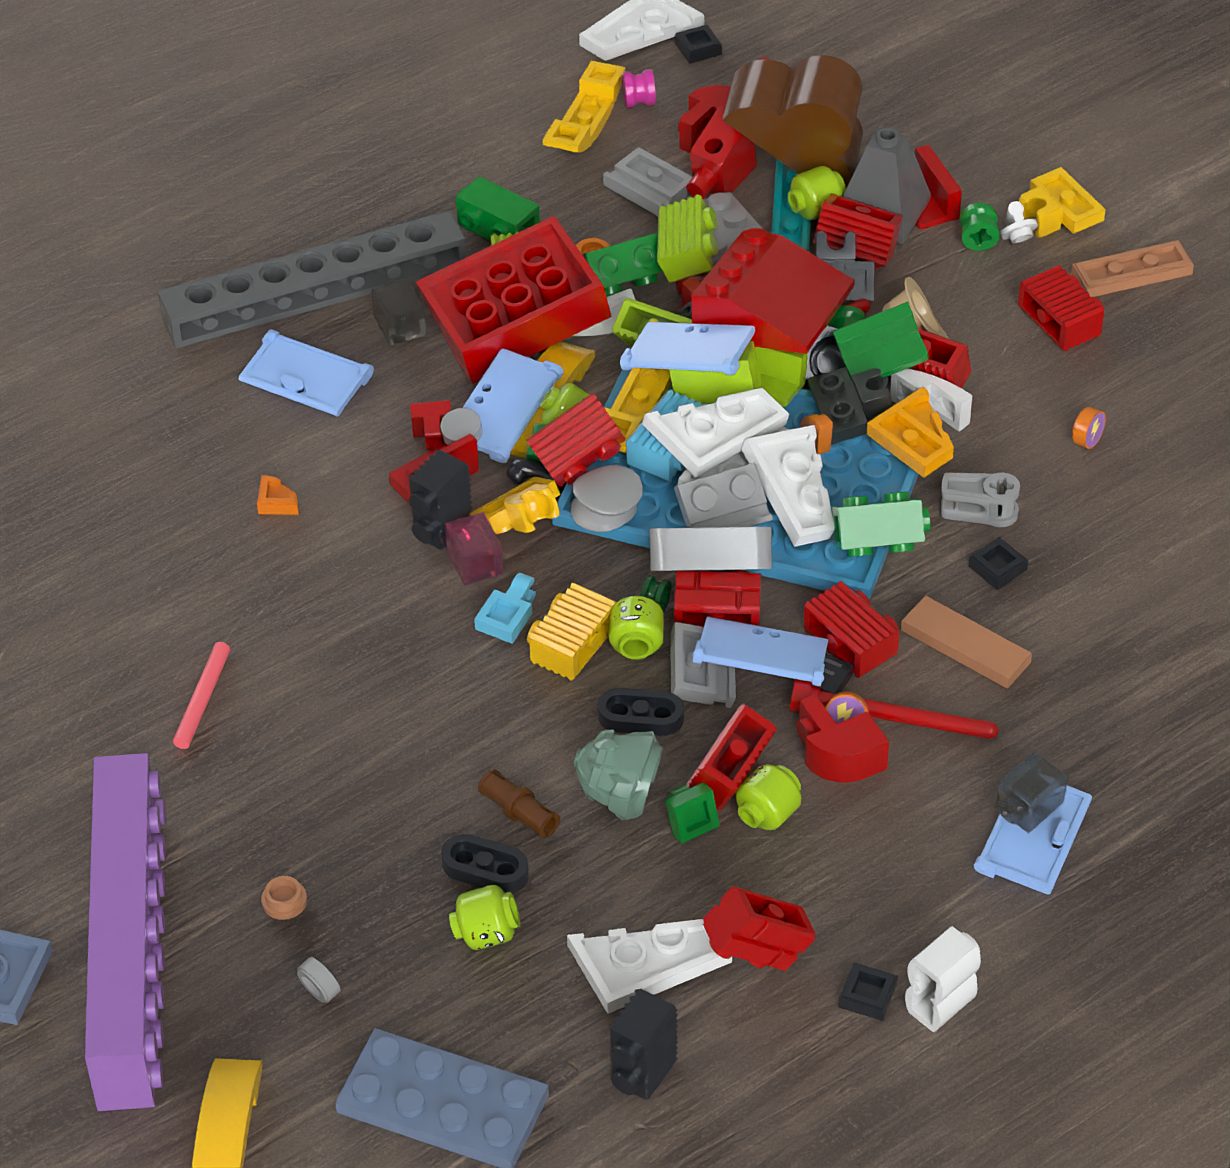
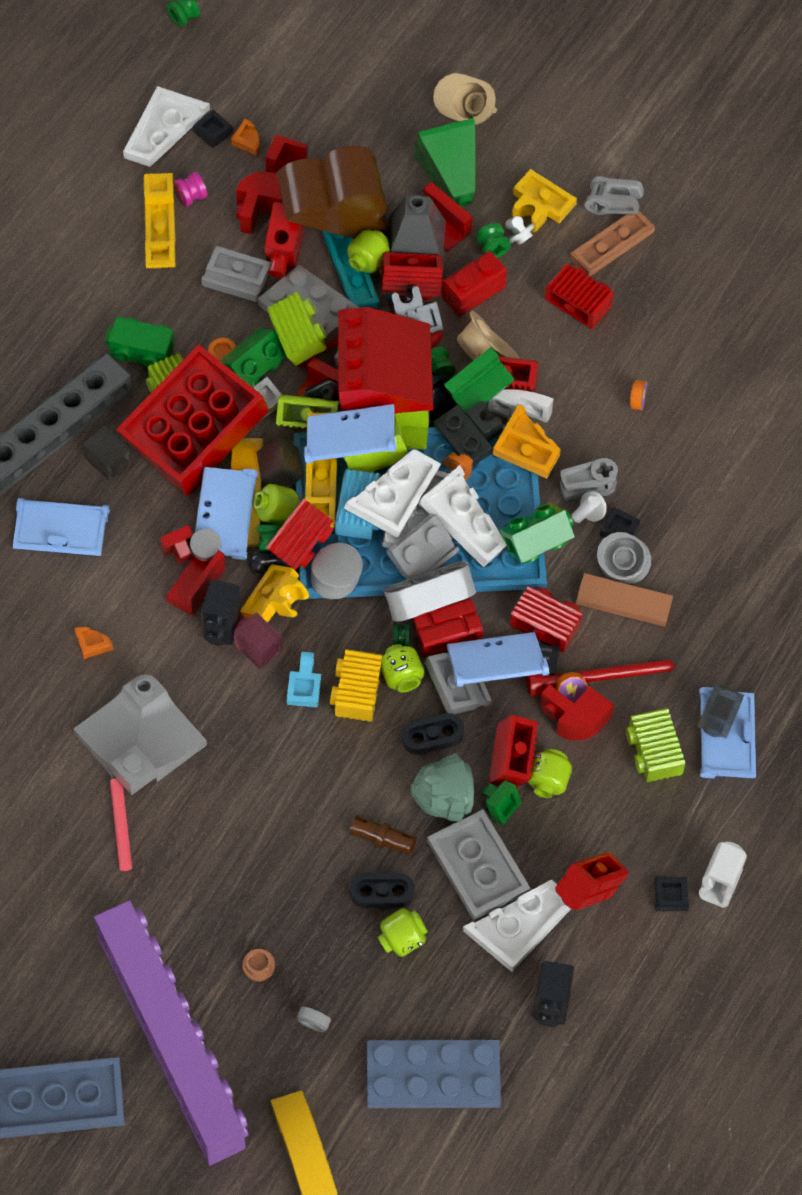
camera: 25 degrees left, 15 degrees up
(279, 606) = (140, 735): none -> light grey slope
(597, 370) = (280, 463): none -> clear smoke brick
(624, 873) = (478, 865): none -> light grey plate
(731, 59) = (246, 138): none -> orange tile
(927, 811) = (656, 745): none -> lime brick
(934, 259) = (474, 283): none -> red brick
(965, 126) = (449, 158): none -> green slope
(967, 528) = (591, 507): none -> white plate
(985, 592) = (624, 558): none -> light grey piece
(1013, 80) = (464, 98): none -> tan piece
(1154, 219) = (614, 196): none -> light grey piece

